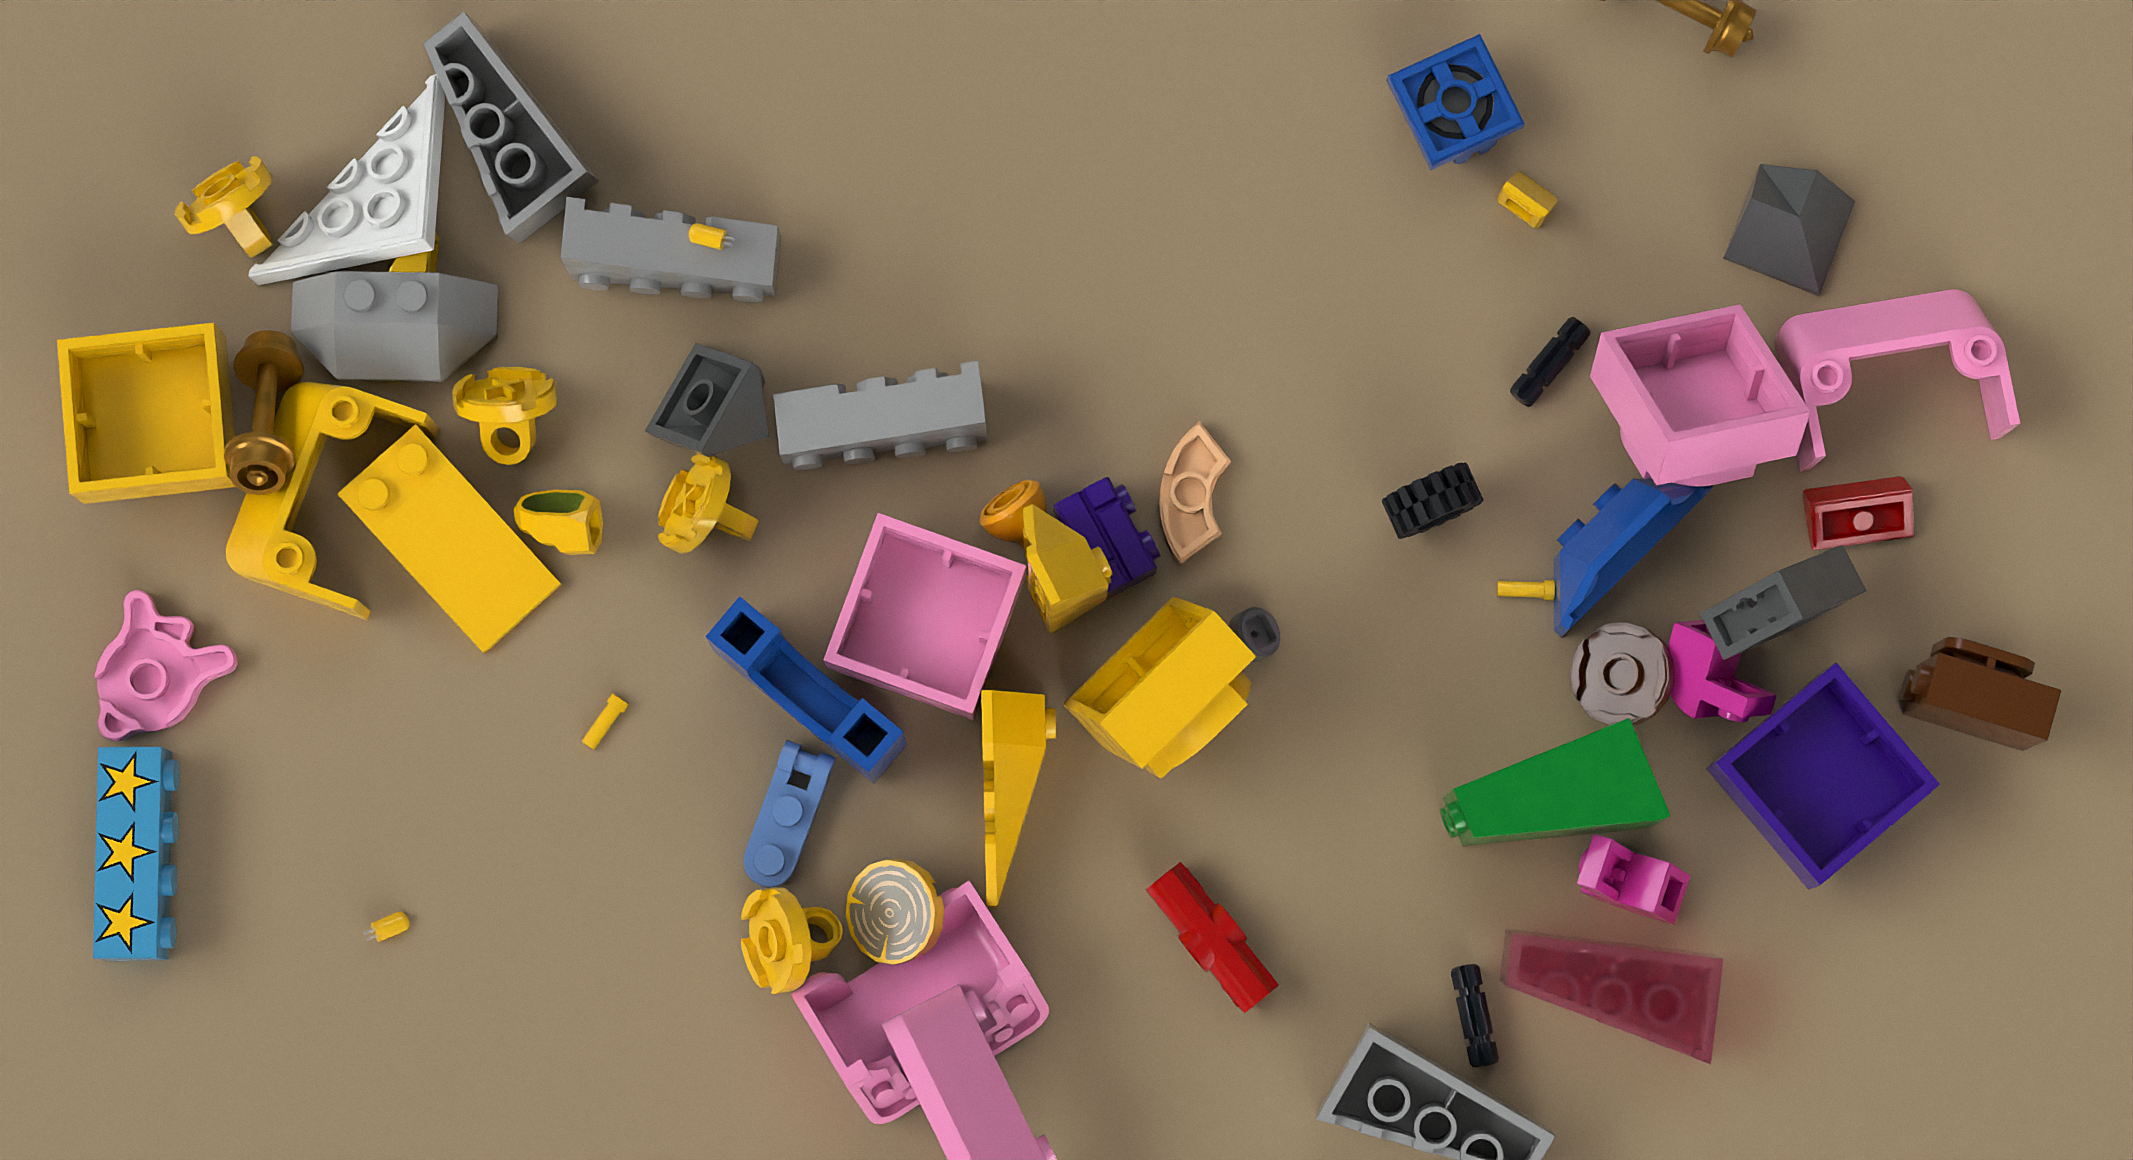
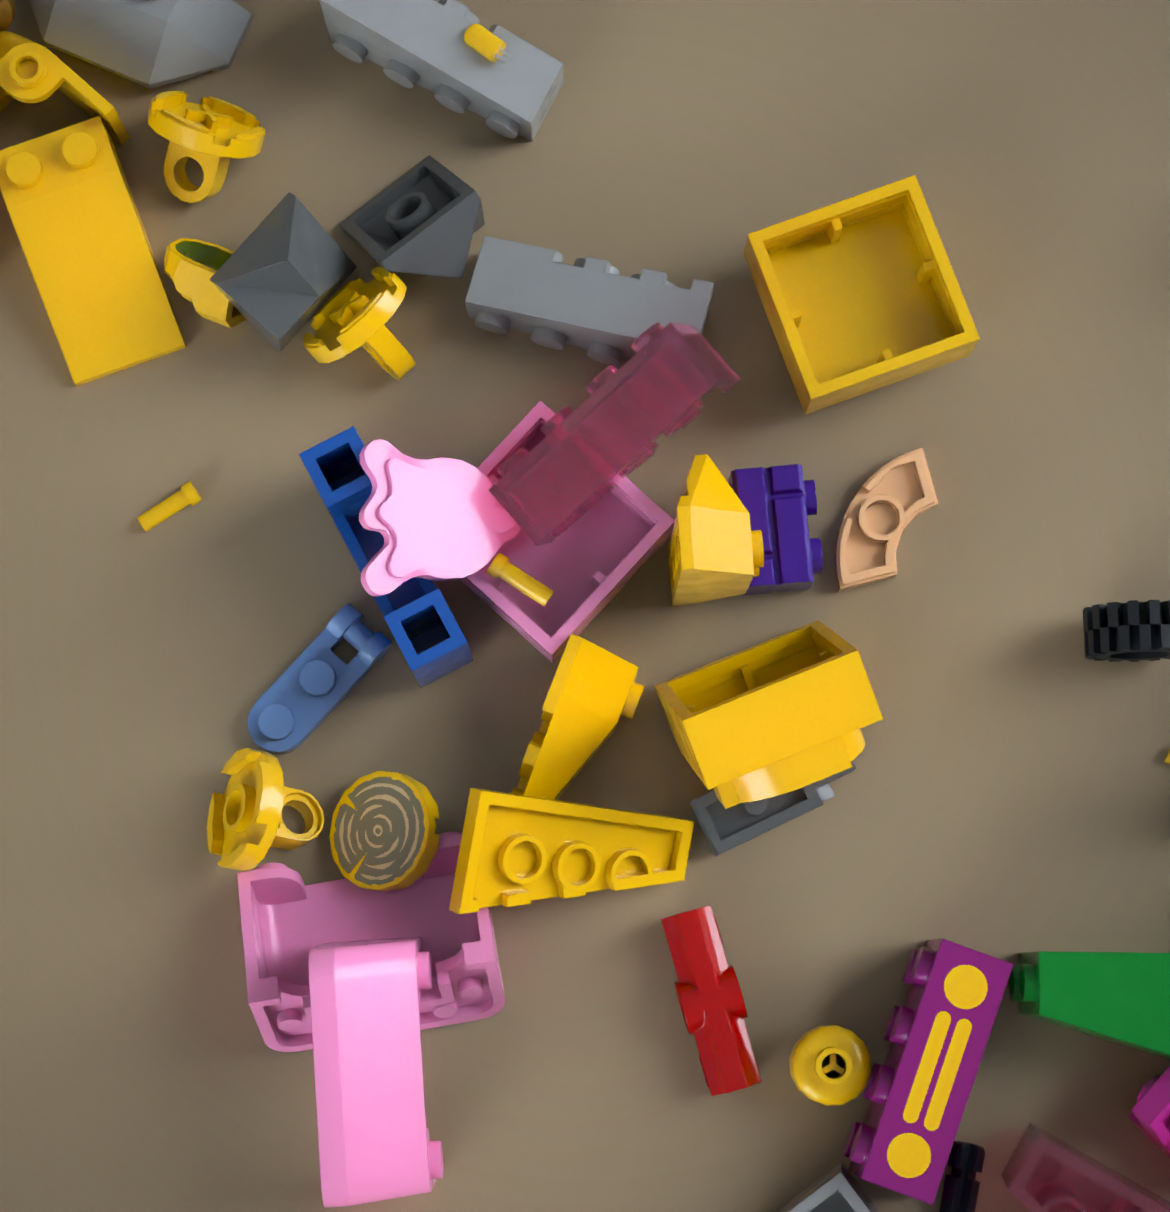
camera: 25 degrees right, 0 degrees up
(621, 491) = (283, 272): none -> dark grey slope
(834, 642) = (432, 518): none -> tile
(922, 664) = (519, 579): none -> yellow piece
(947, 515) = (610, 430): none -> clear pink wedge
(1004, 513) = (674, 459): light orange brick -> none
(1034, 868) = (550, 848): none -> yellow wing
(1098, 319) = (860, 294): none -> yellow container
(1180, 783) = (740, 823): none -> dark grey hinge
(1257, 631) = (894, 693): dark grey tile -> none
(1316, 963) = (809, 1074): none -> yellow head
(1406, 917) = (927, 1069): none -> magenta brick

